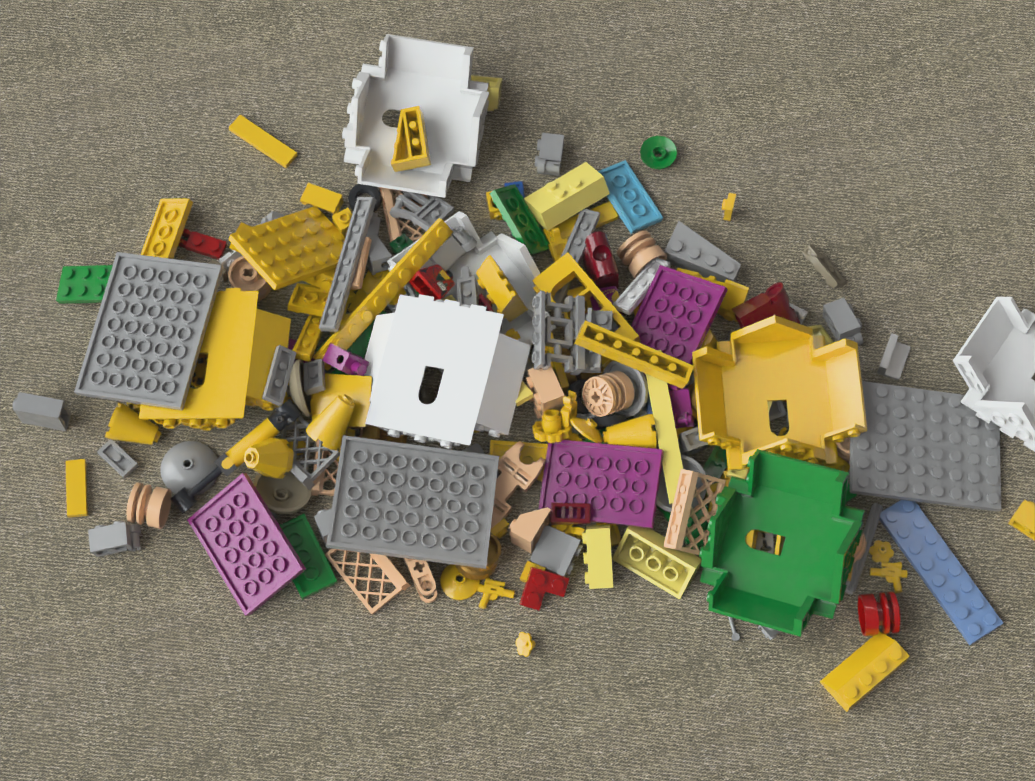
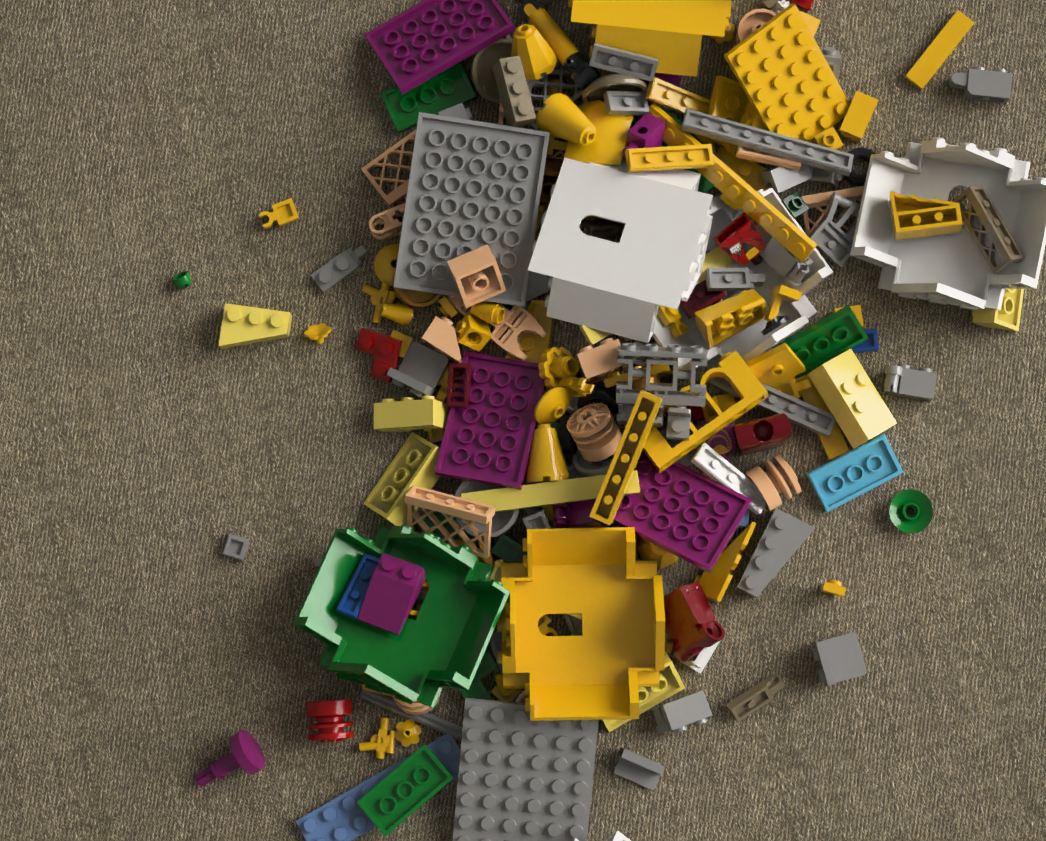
camera: 90 degrees right, 15 degrees up
(294, 105) = (983, 84): none -> light grey hinge
(305, 467) = (514, 92): none -> dark tan brick
(365, 335) = (669, 158): none -> yellow tile
(414, 682) = (283, 213): none -> yellow plate
(421, 83) = (991, 224): none -> dark tan fence
(464, 629) = (339, 268): none -> light grey hinge
(474, 492) = (476, 276): none -> light nougat slope
(479, 771) = (182, 279): none -> green hinge
(499, 256) = (778, 294): none -> yellow piece
(504, 488) = (488, 312): none -> yellow cone
(505, 573) = (398, 313): none -> yellow cone
(521, 704) = (251, 325): none -> light yellow wedge
(522, 502) = (473, 332): none -> yellow brick
(541, 251) = (776, 365): none -> yellow plate
(727, 710) = (236, 547): none -> light grey tile
(759, 586) = (356, 591): none -> blue tile
(765, 555) = (391, 594): none -> magenta slope
(786, 204) = (839, 659): none -> light grey bracket
(864, 670) = (270, 699): yellow slope -> none
(917, 688) = (244, 754): none -> magenta piece
(934, 545) = (405, 790): none -> green plate

